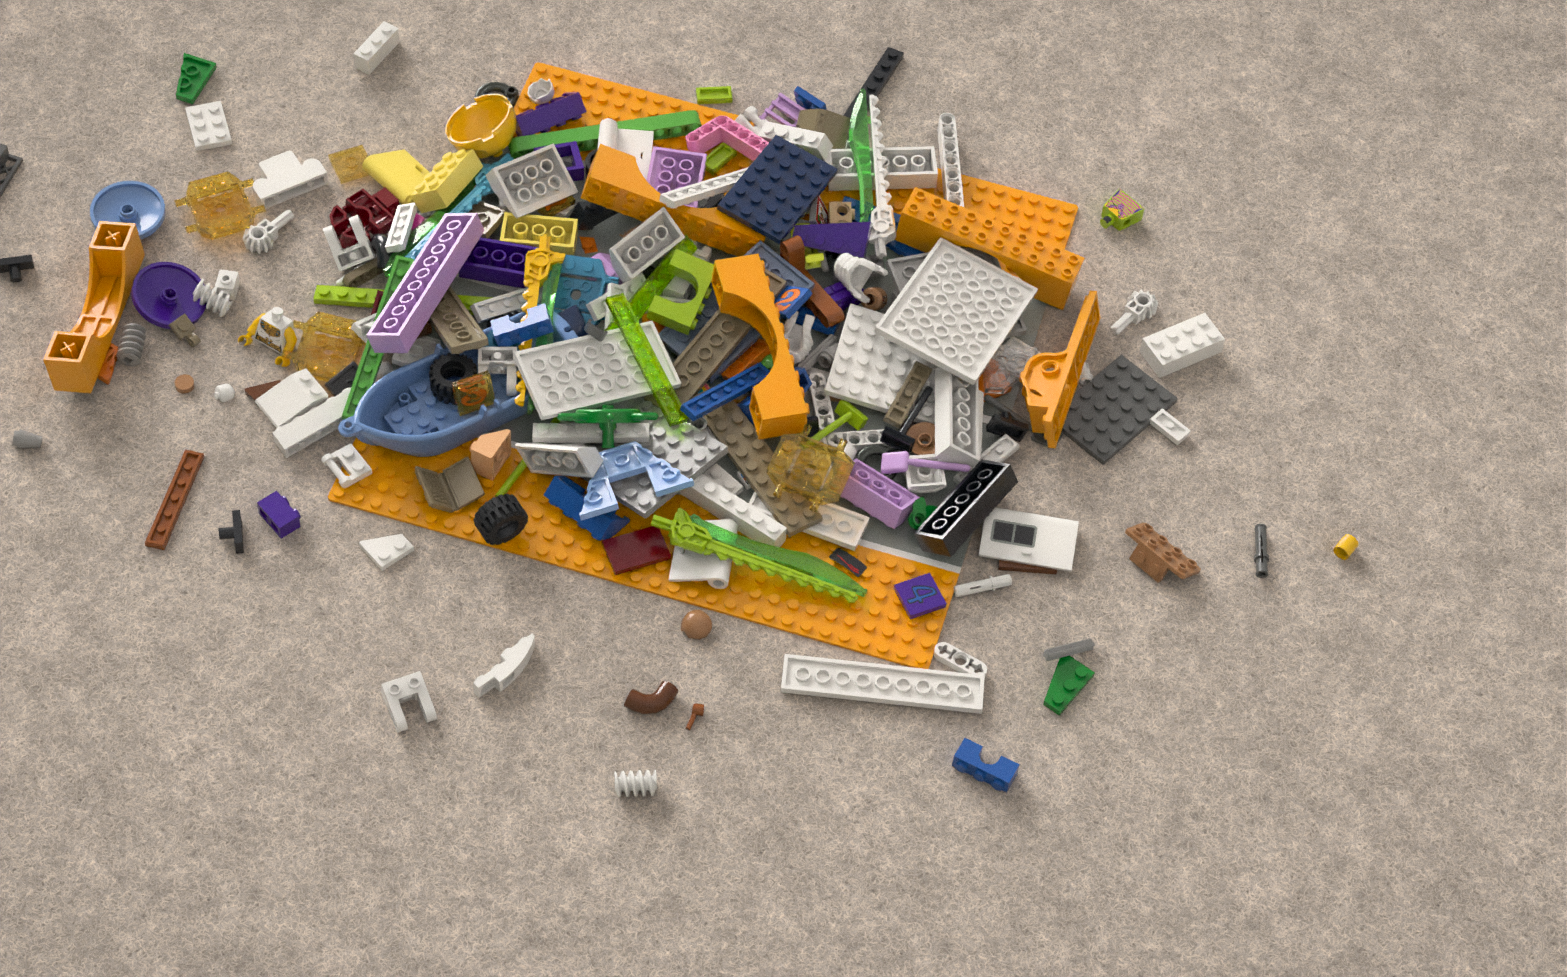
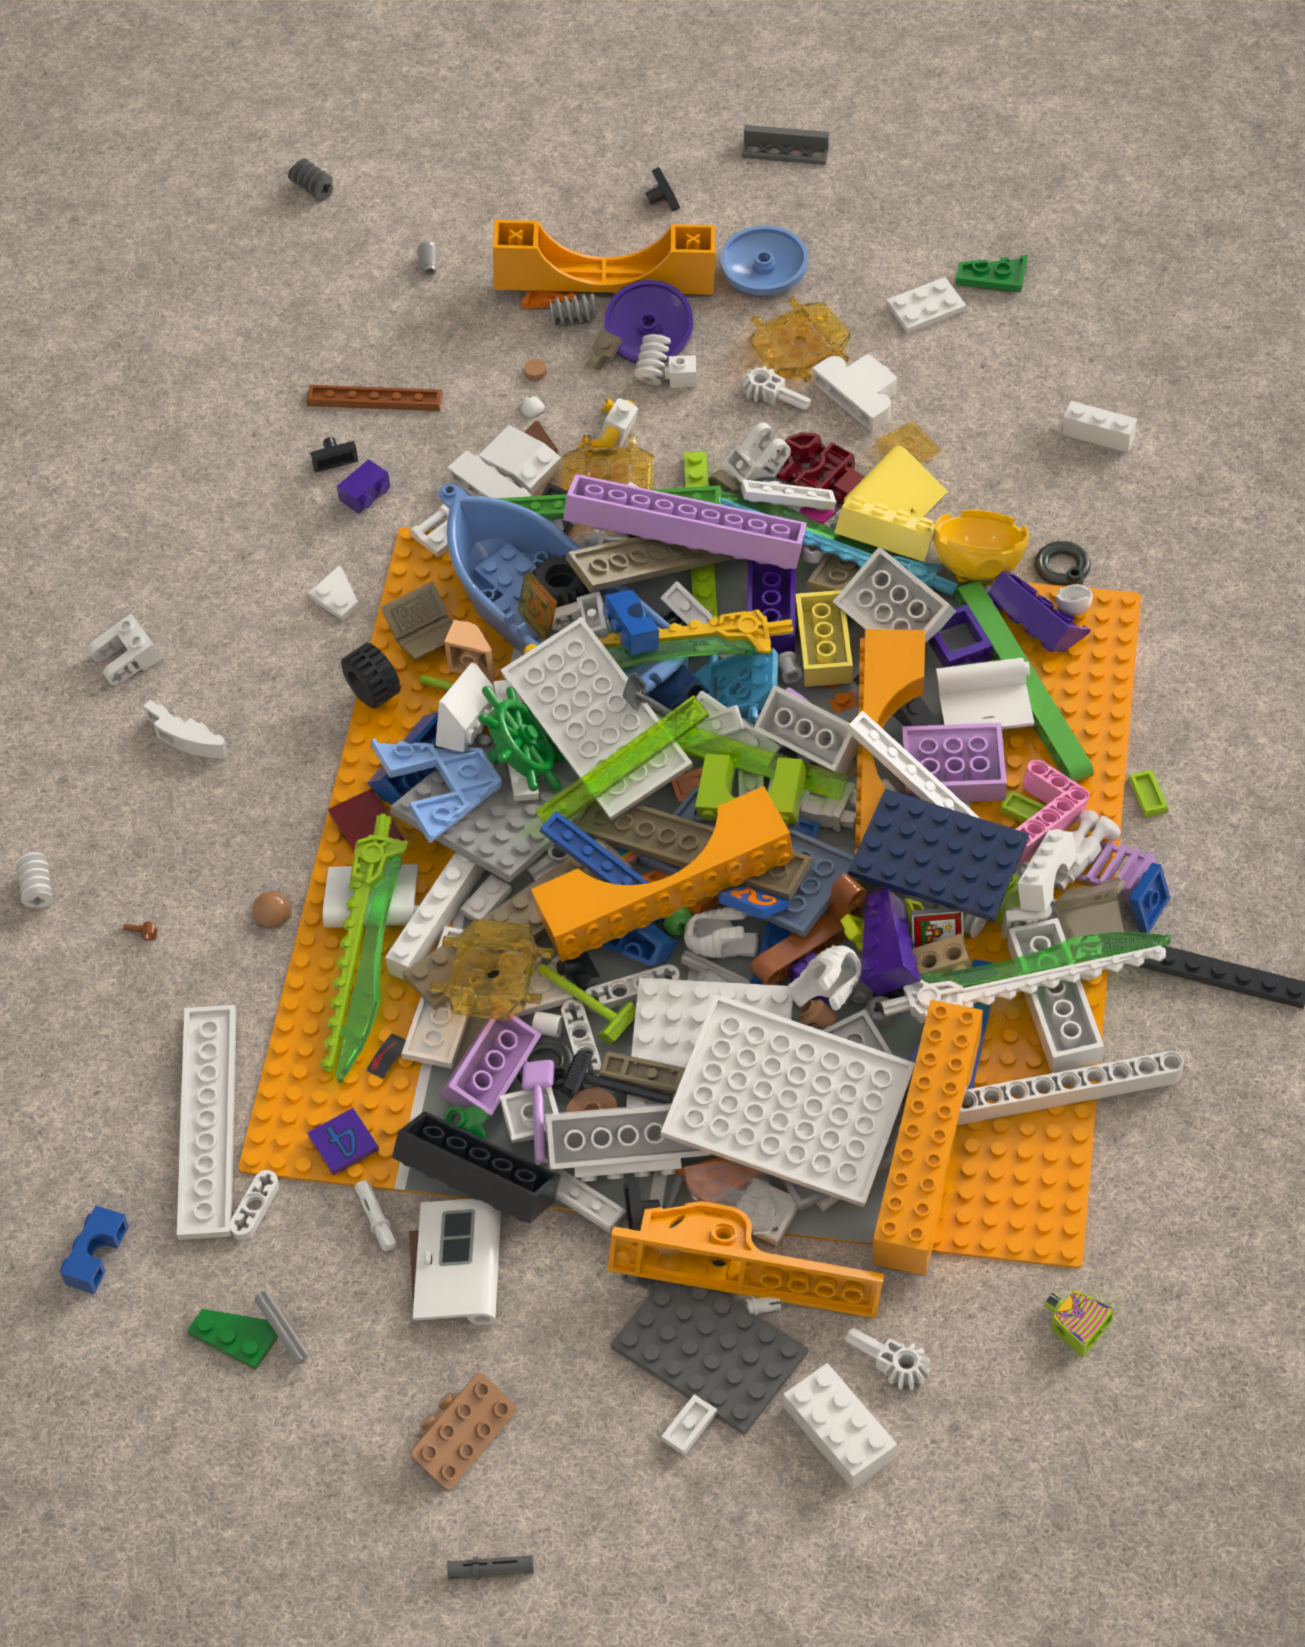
camera: 90 degrees right, 0 degrees up
(652, 702) = (150, 881): reddish brown cylinder -> none

